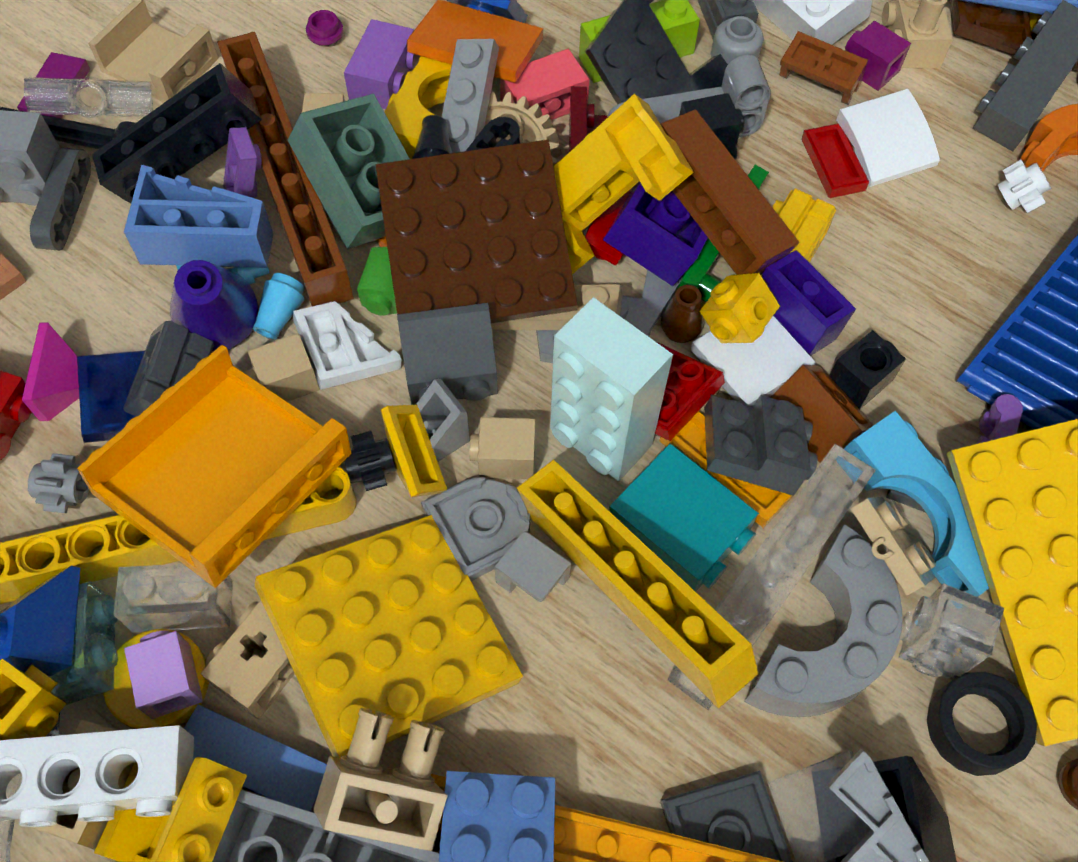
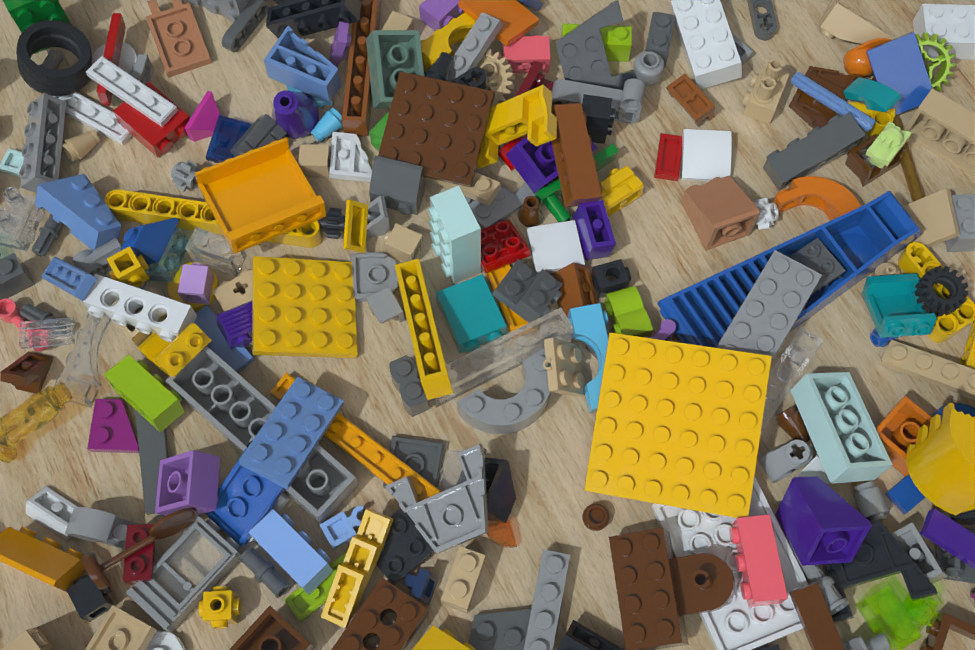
camera: 25 degrees right, 5 degrees up
(278, 719) = (236, 325): none -> dark purple brick
(380, 802) = (262, 376): tan brick -> none
(659, 700) = (408, 384): none -> dark grey brick
(739, 308) = (554, 220): yellow brick -> none
(882, 50) = (729, 103): magenta brick -> none
(937, 415) = (628, 313): none -> lime brick
(949, 632) = (564, 419): clear brick -> none
(965, 204) = (719, 211): none -> nougat slope
(1011, 703) = (561, 448): black tyre -> none

